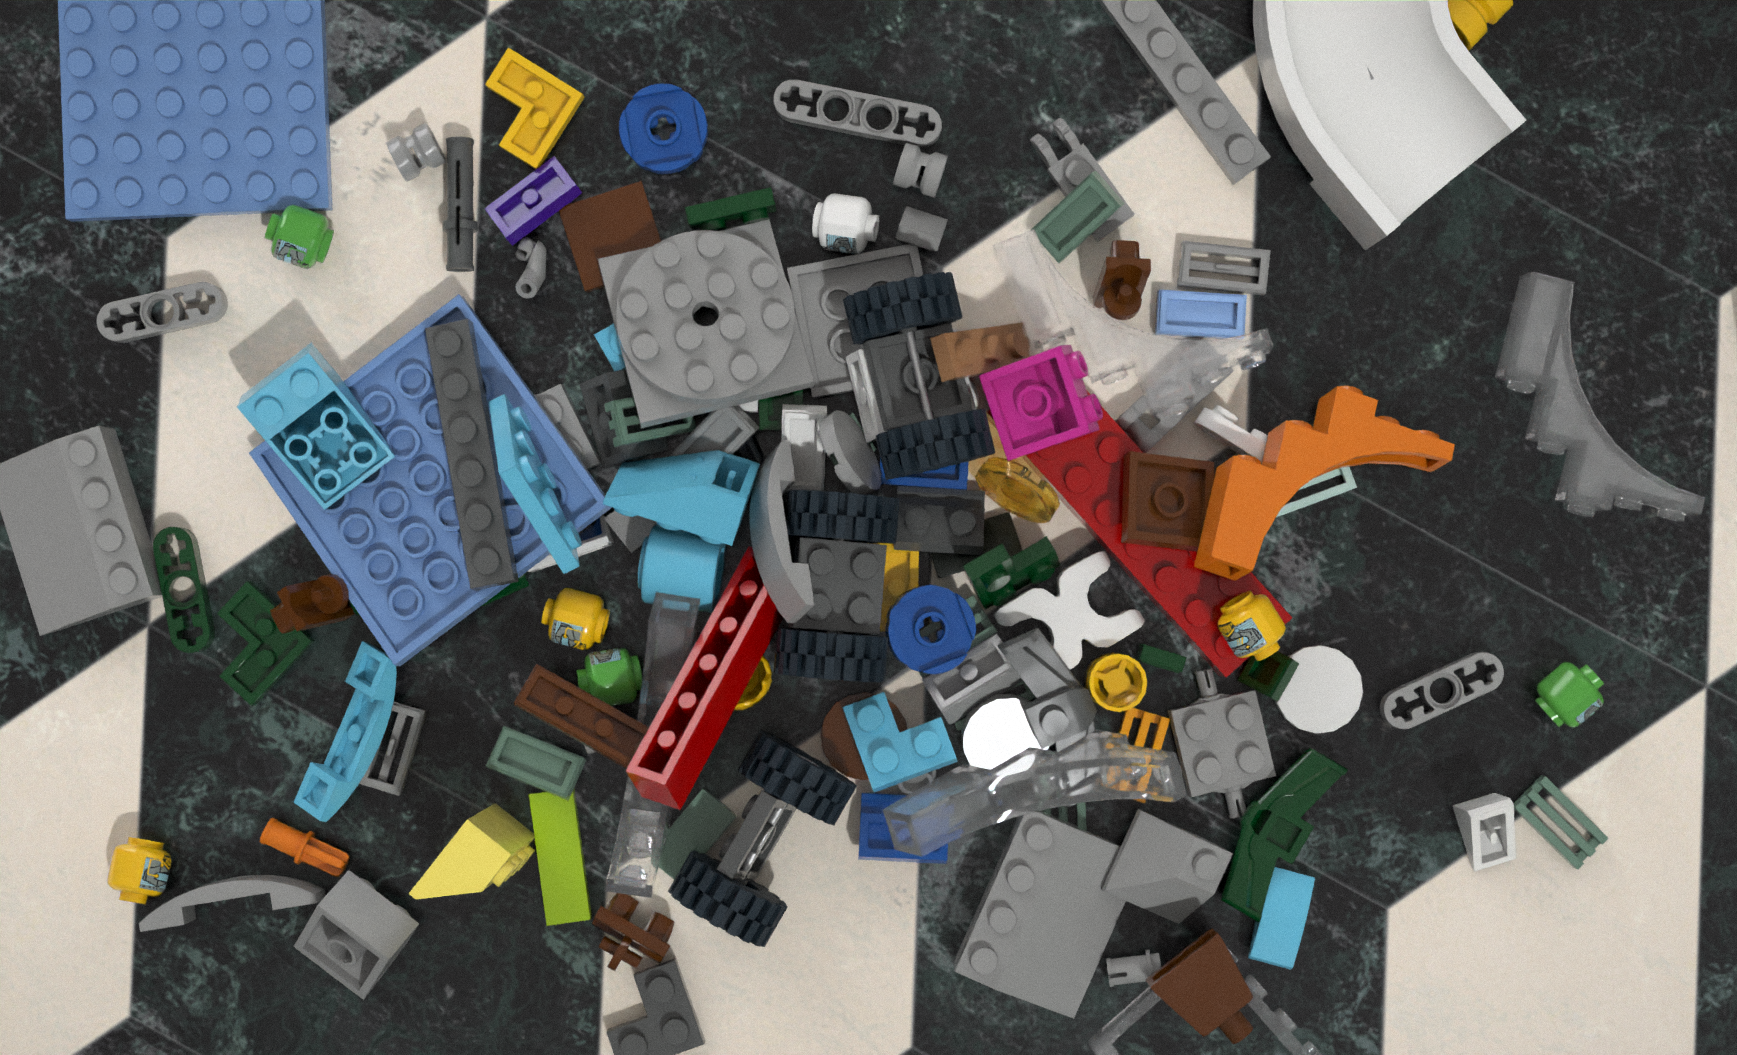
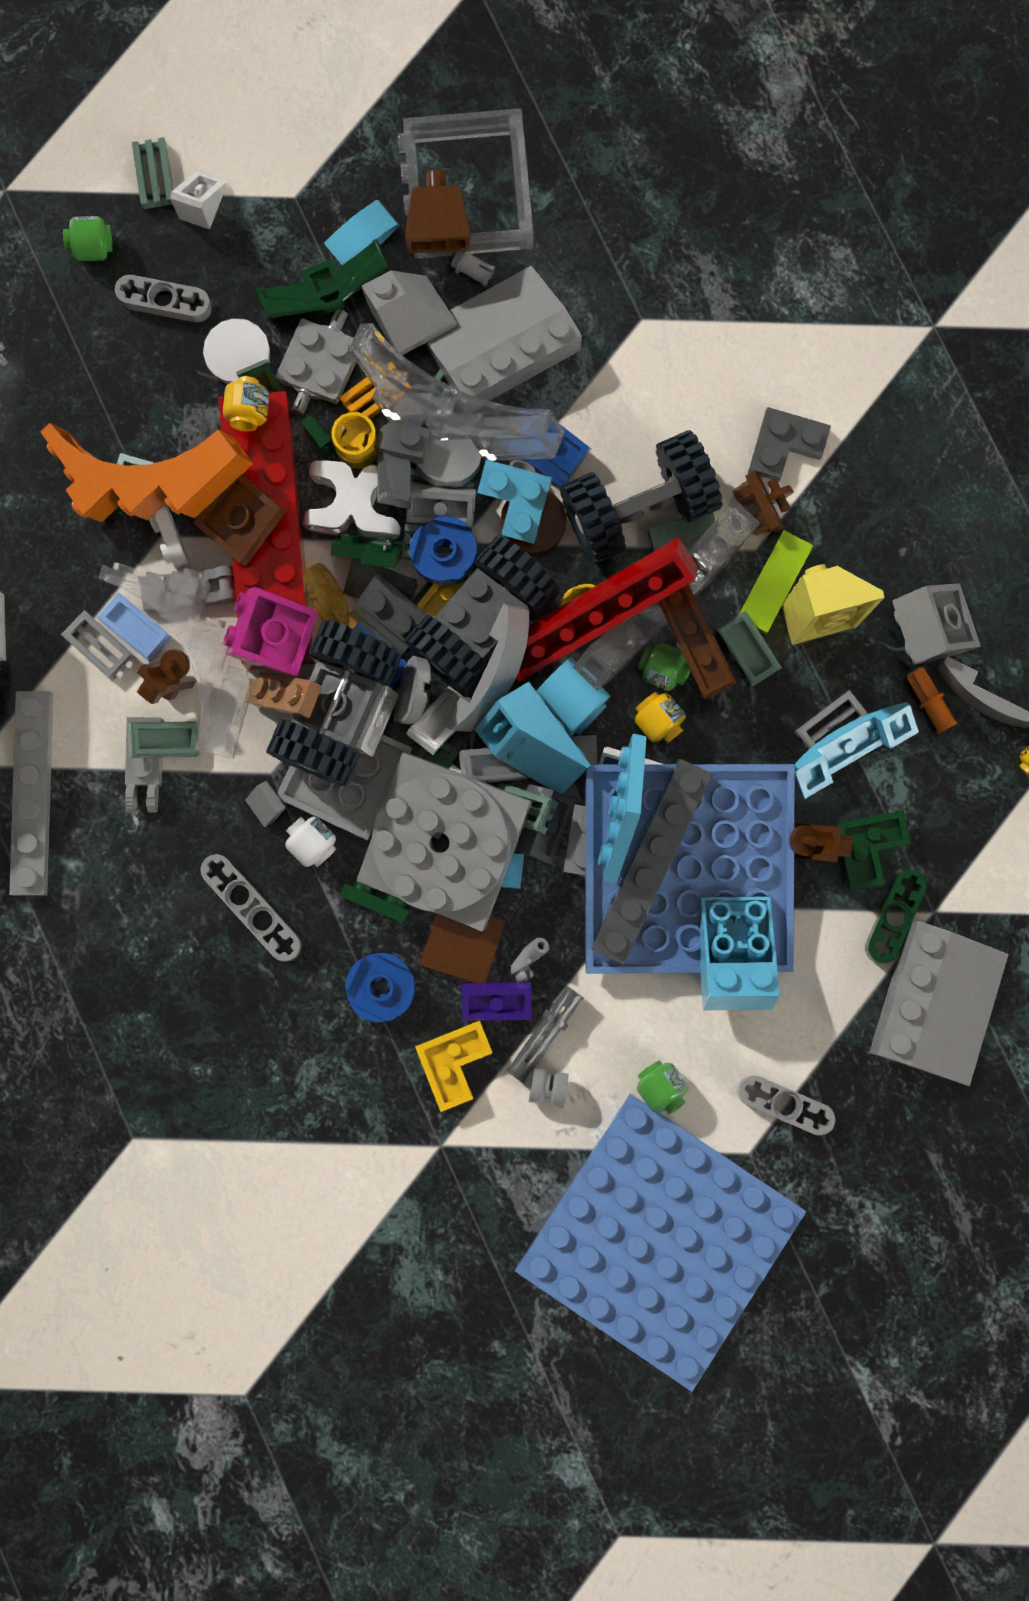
camera: 145 degrees left, 5 degrees down
(910, 167) = (238, 841): light grey wheel -> none

